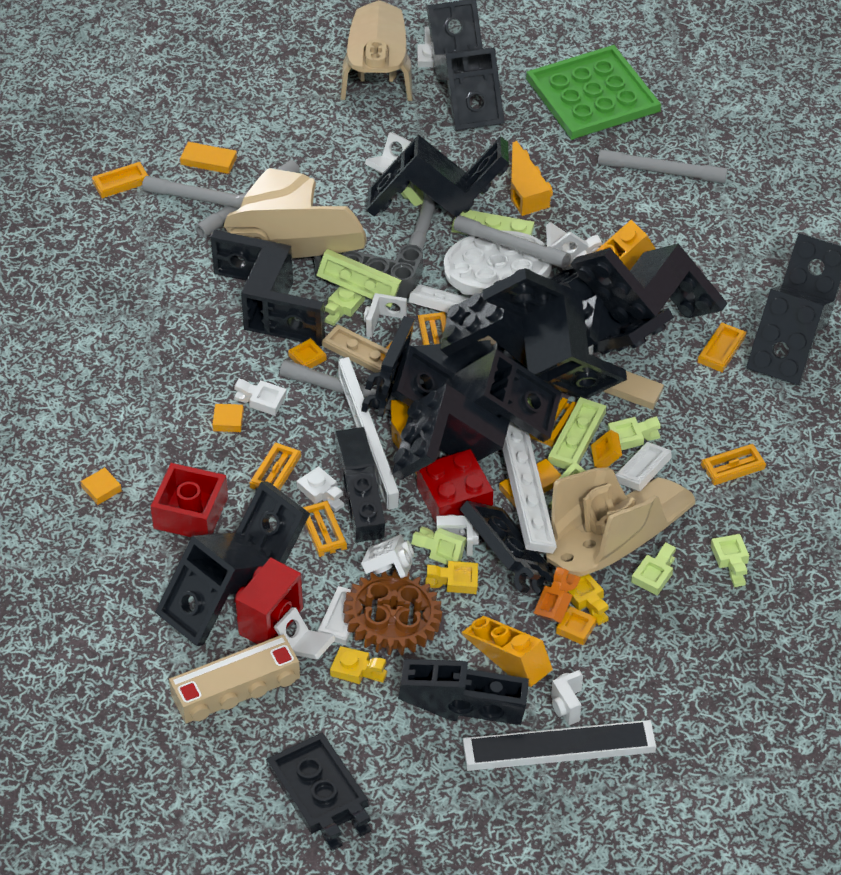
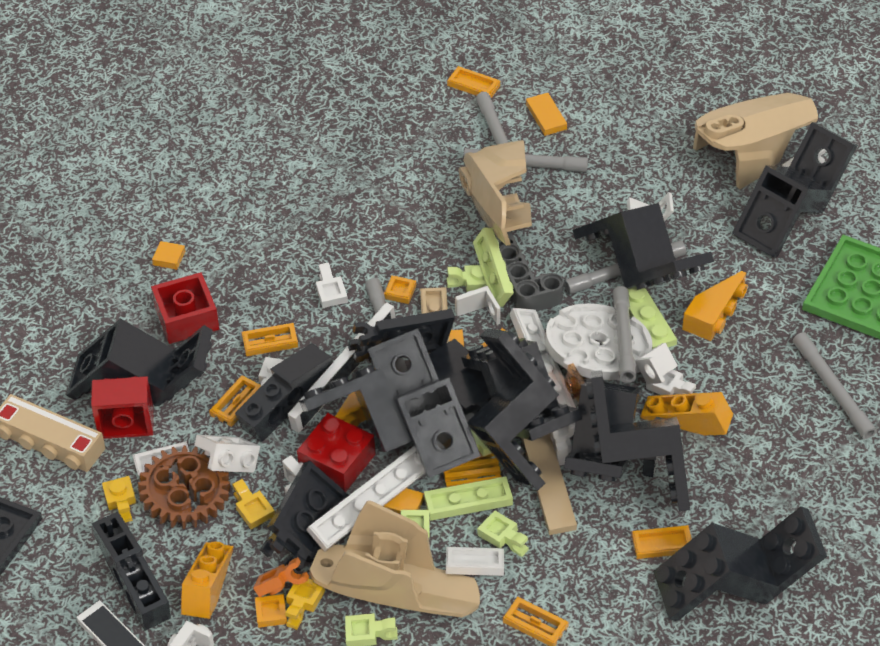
camera: 55 degrees right, 0 degrees up
(228, 417) = (295, 283): light orange tile -> none
(265, 295) = (431, 221): black bracket -> none
(304, 641) = (117, 454): white bracket -> none
(443, 544) = (274, 479): yellowish green plate -> none
(606, 449) = (466, 525): light orange tile -> none

